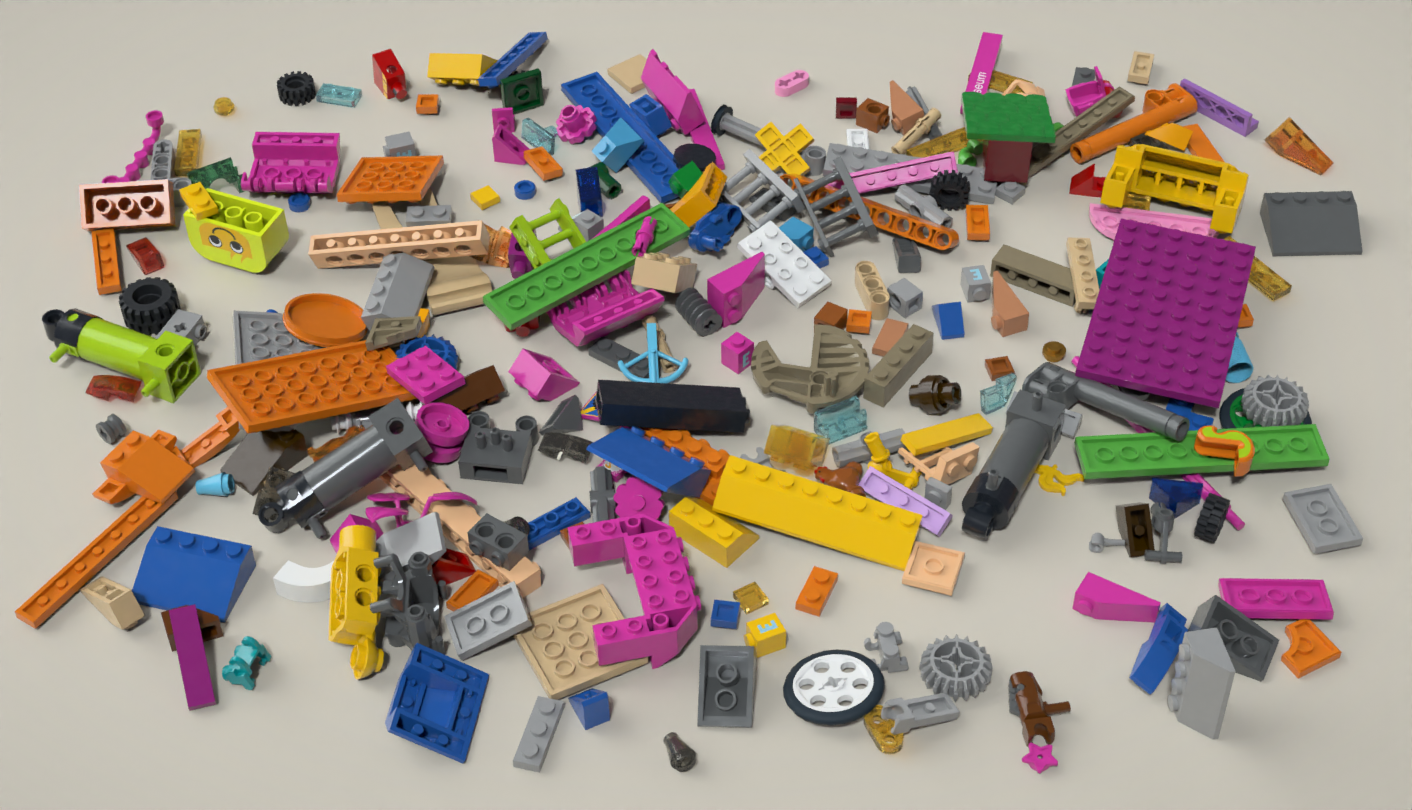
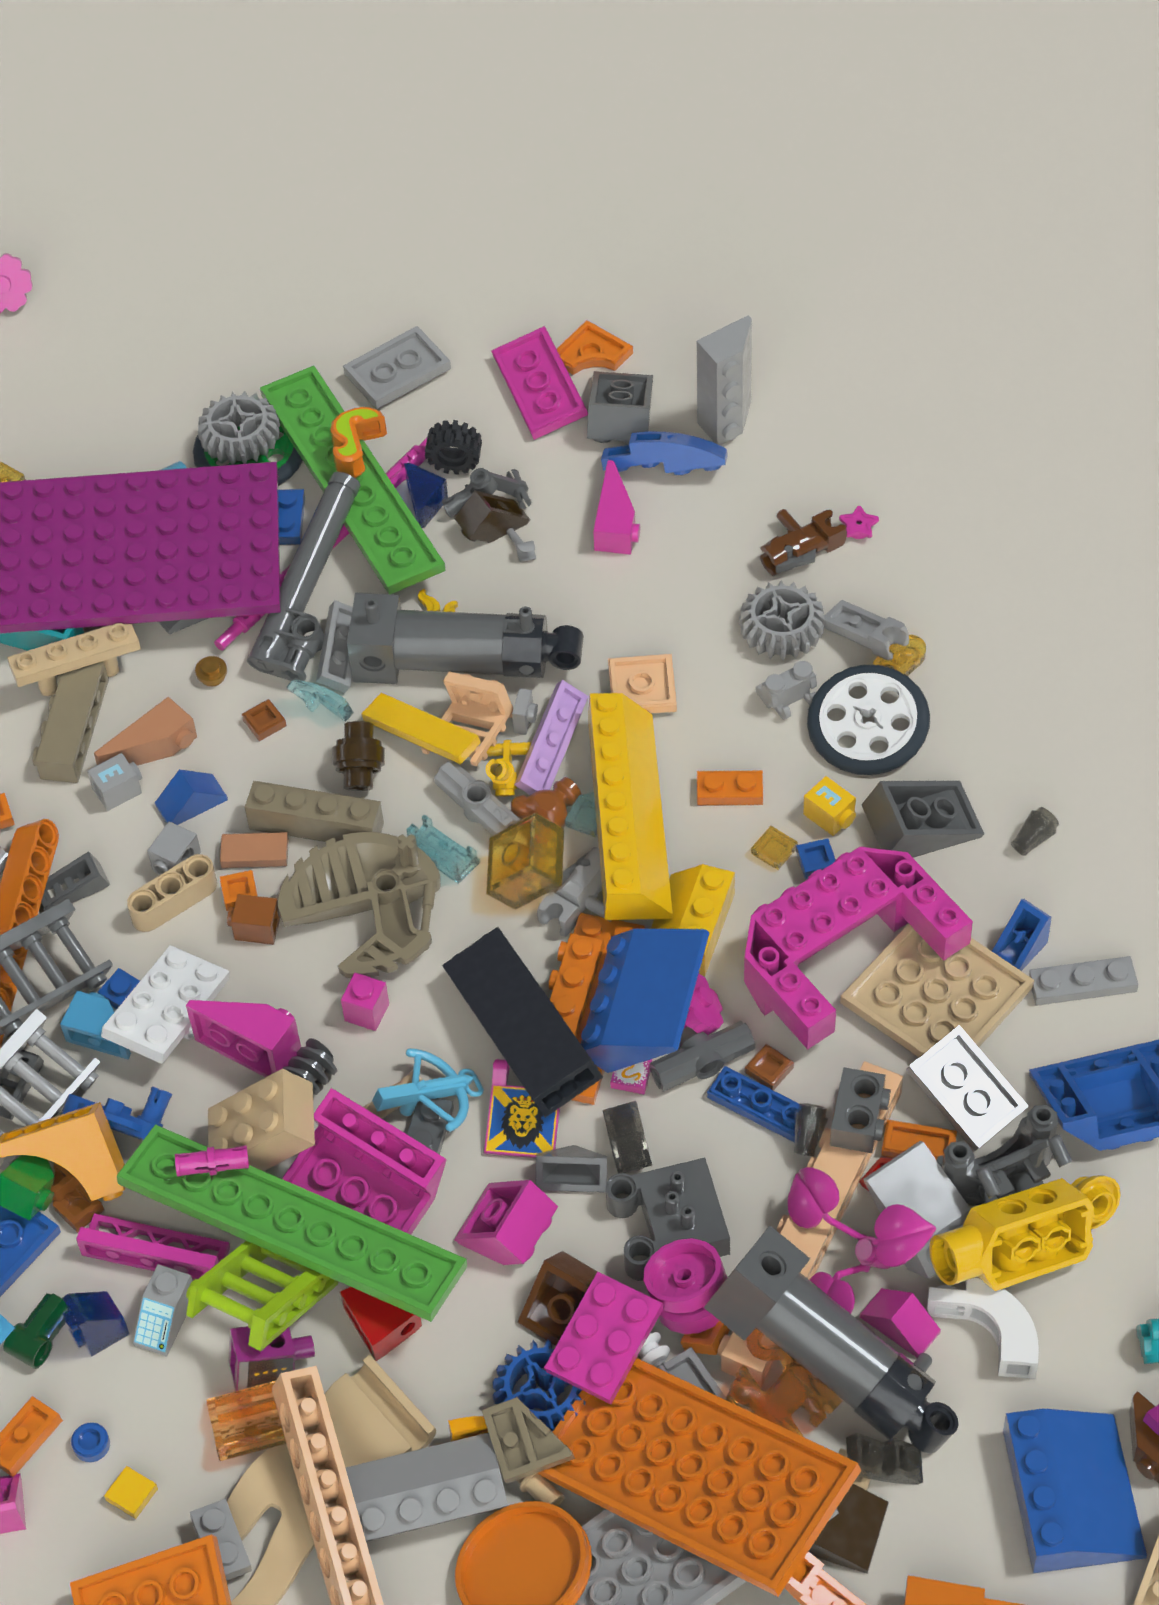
camera: 110 degrees left, 10 degrees up
(218, 485) = (904, 1550): medium azure cone -> none

